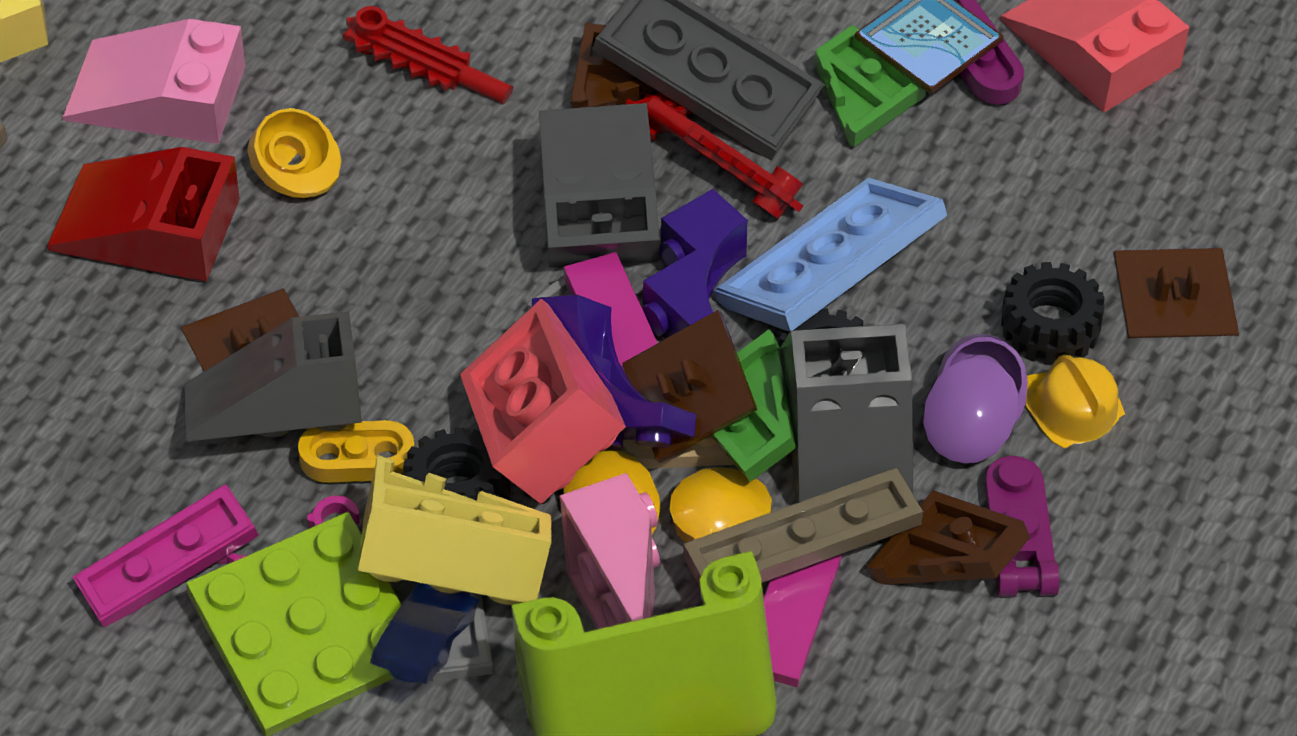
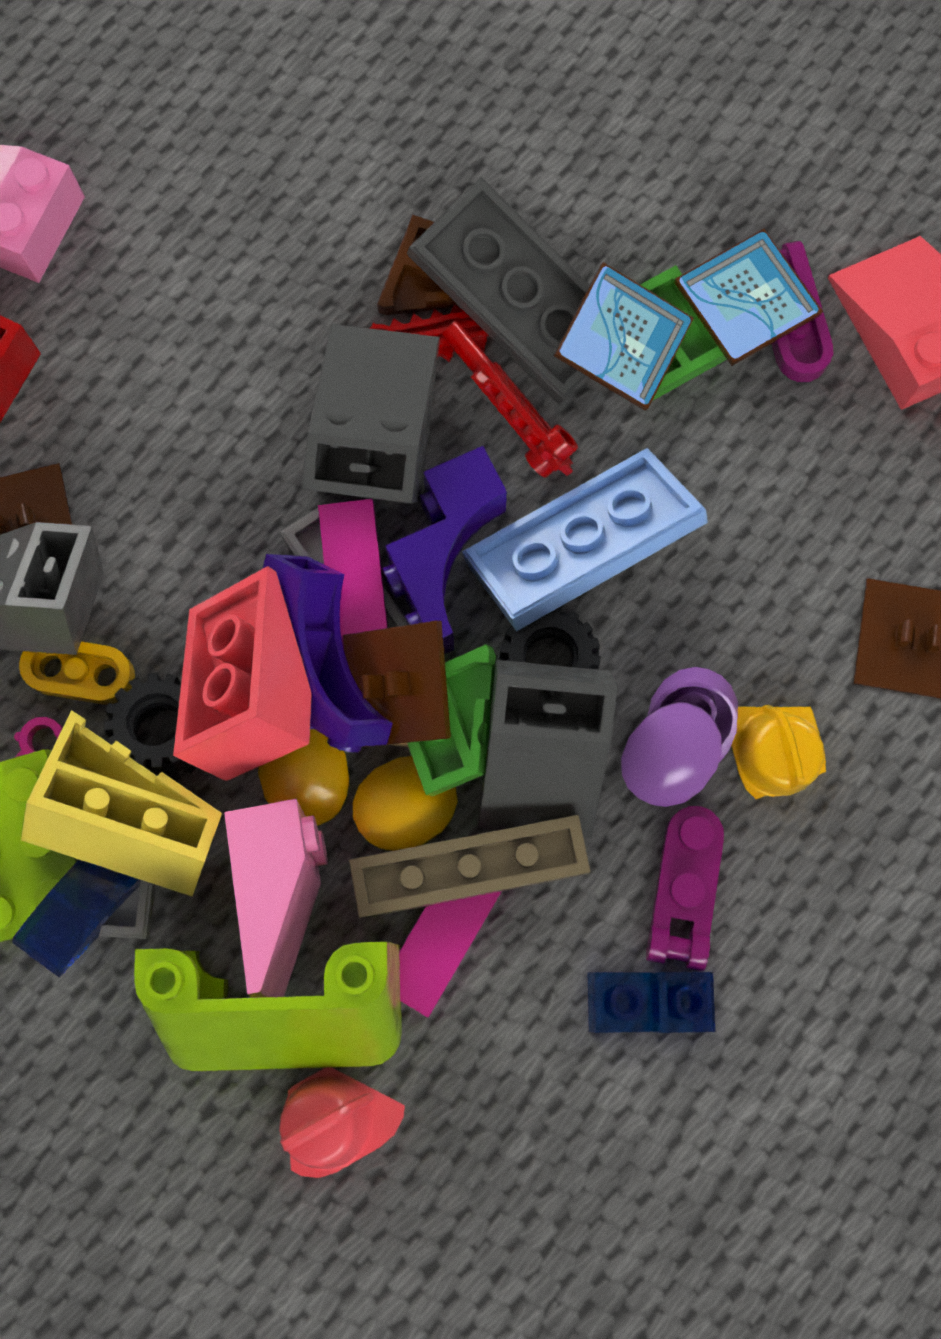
camera: 15 degrees right, 25 degrees up
(280, 139) = (85, 300): yellow hat -> none
(420, 55) = (251, 220): red piece -> none
(821, 82) = (623, 336): none -> piece
(950, 544) = (612, 904): reddish brown wing -> none
(1023, 628) = (651, 1002): none -> clear blue slope
(1049, 336) = (799, 619): black tyre -> none

